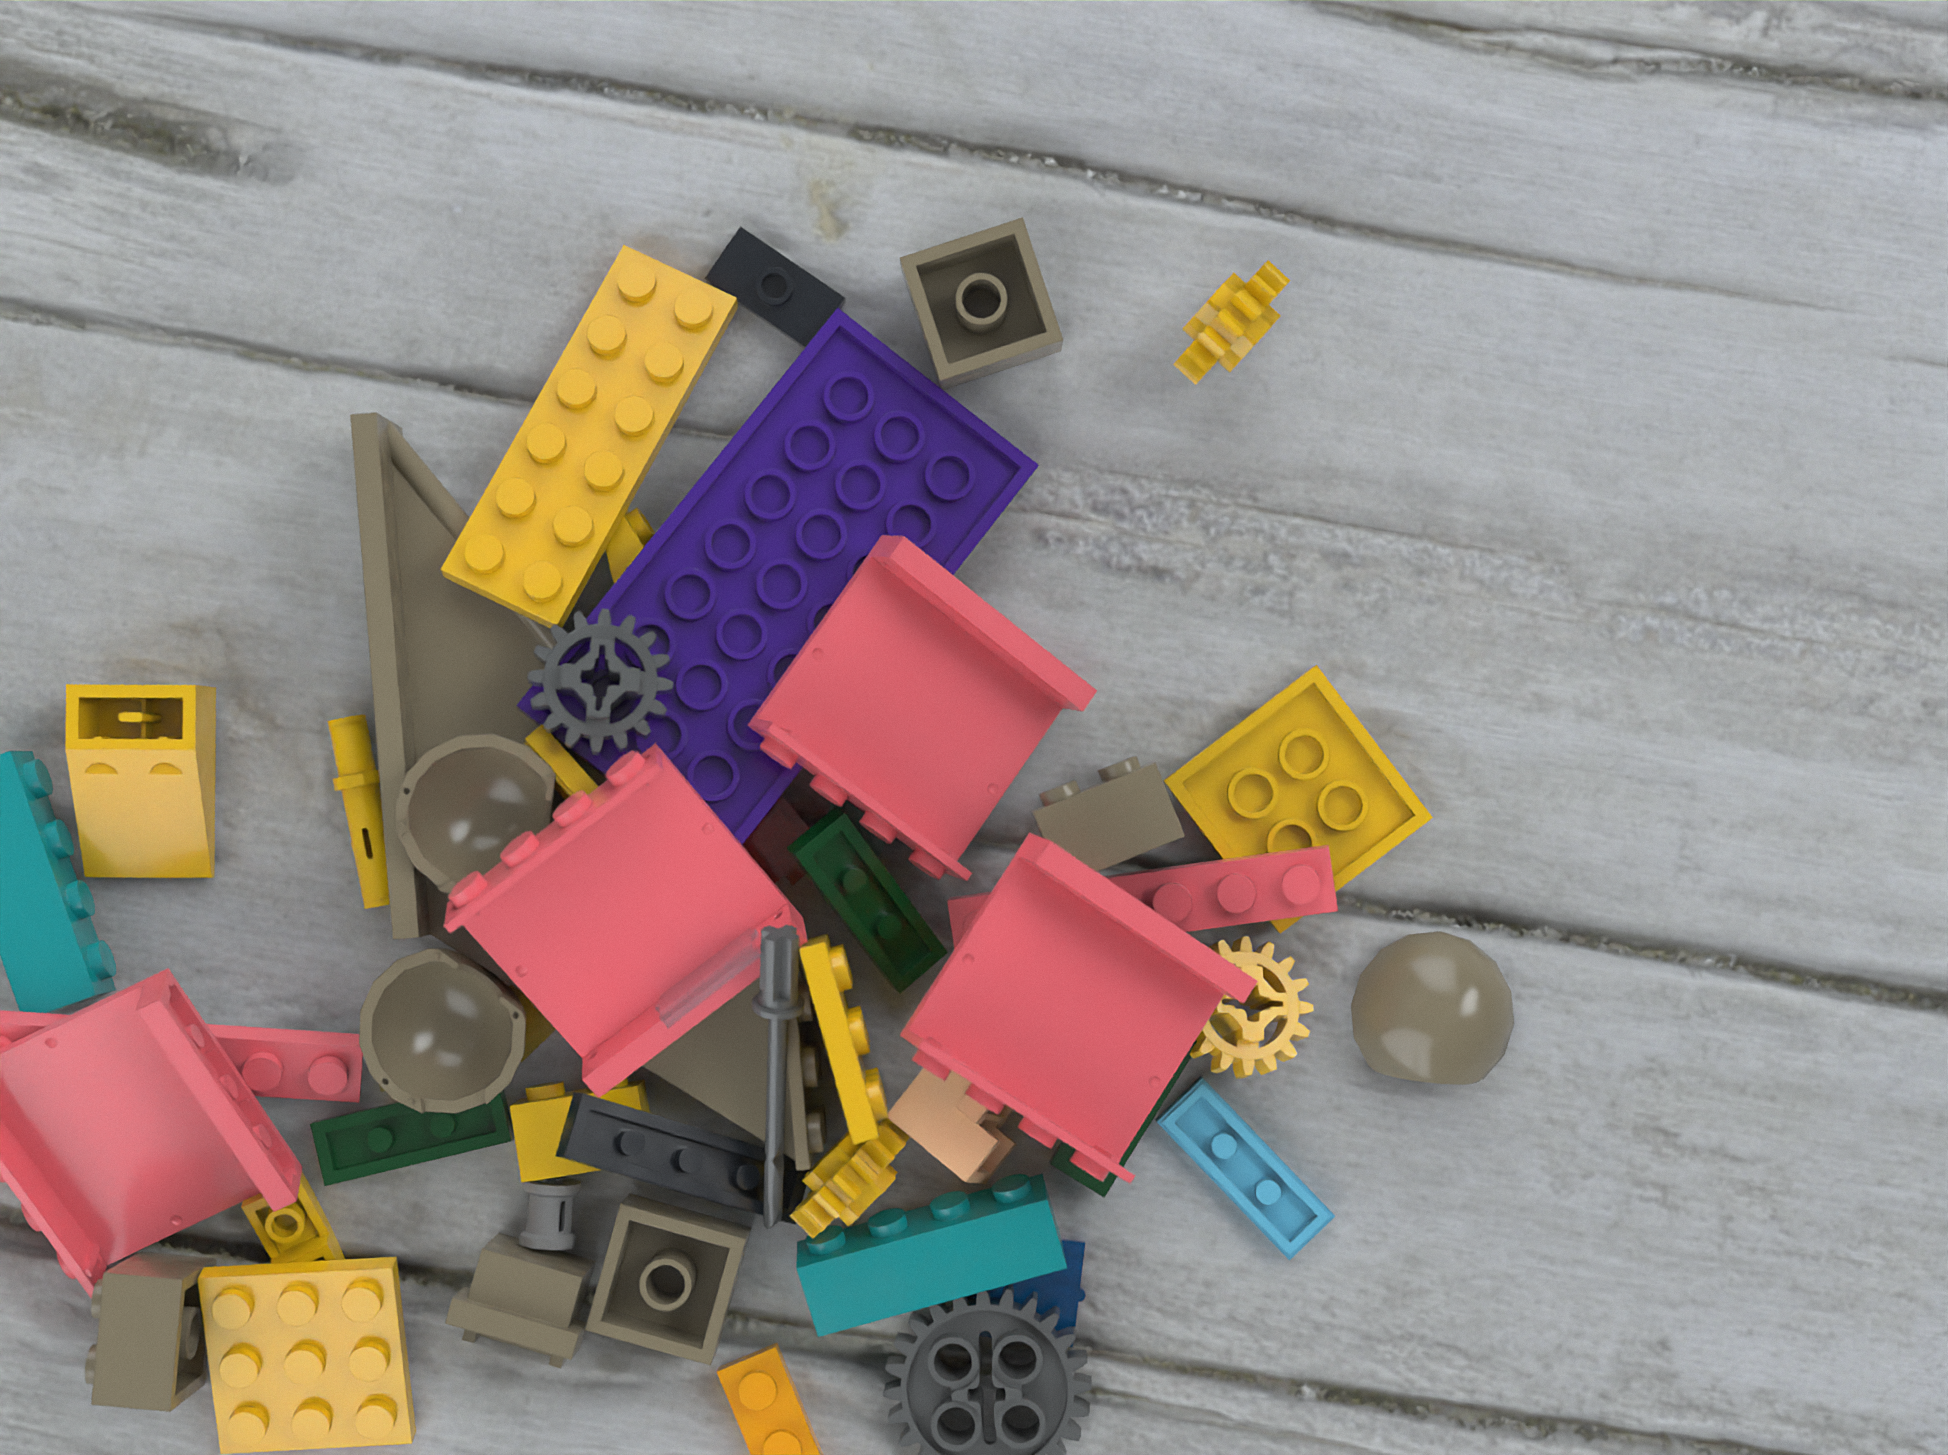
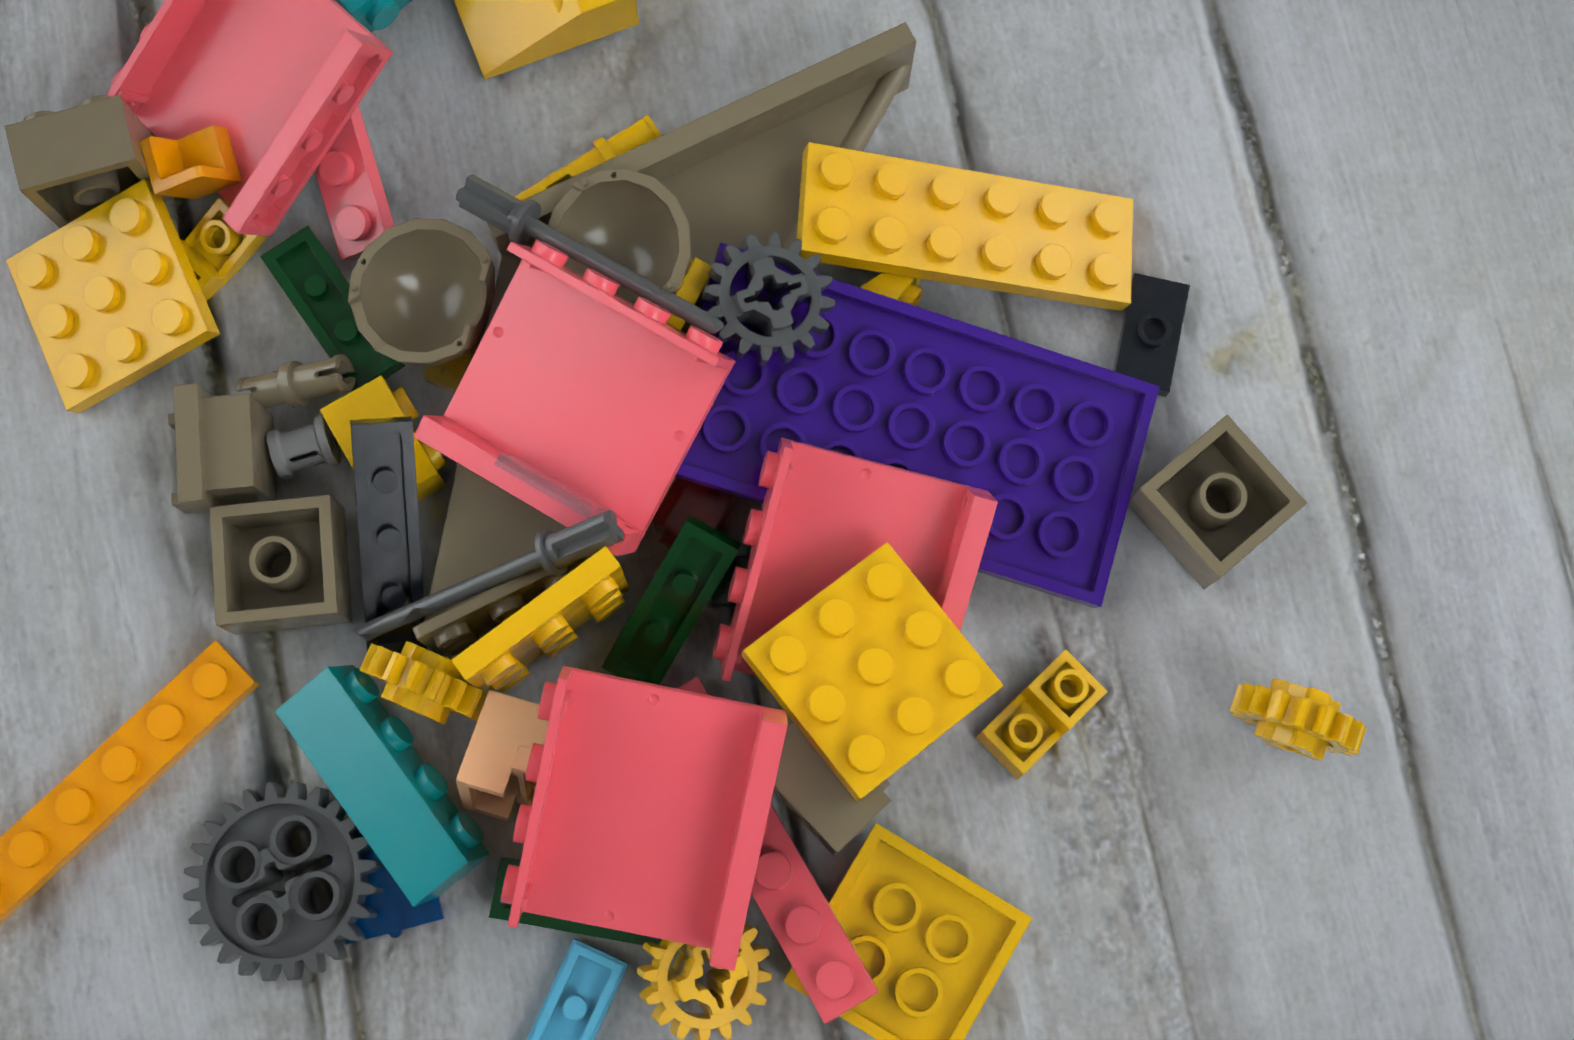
camera: 60 degrees right, 10 degrees down
(194, 1222) = (191, 164): none -> light orange panel
(416, 905) = (522, 221): none -> dark grey piece
(479, 1195) = (299, 382): none -> dark tan pin
(1021, 730) = (871, 671): none -> yellow plate
(1121, 569) = (1041, 714): none -> yellow slope

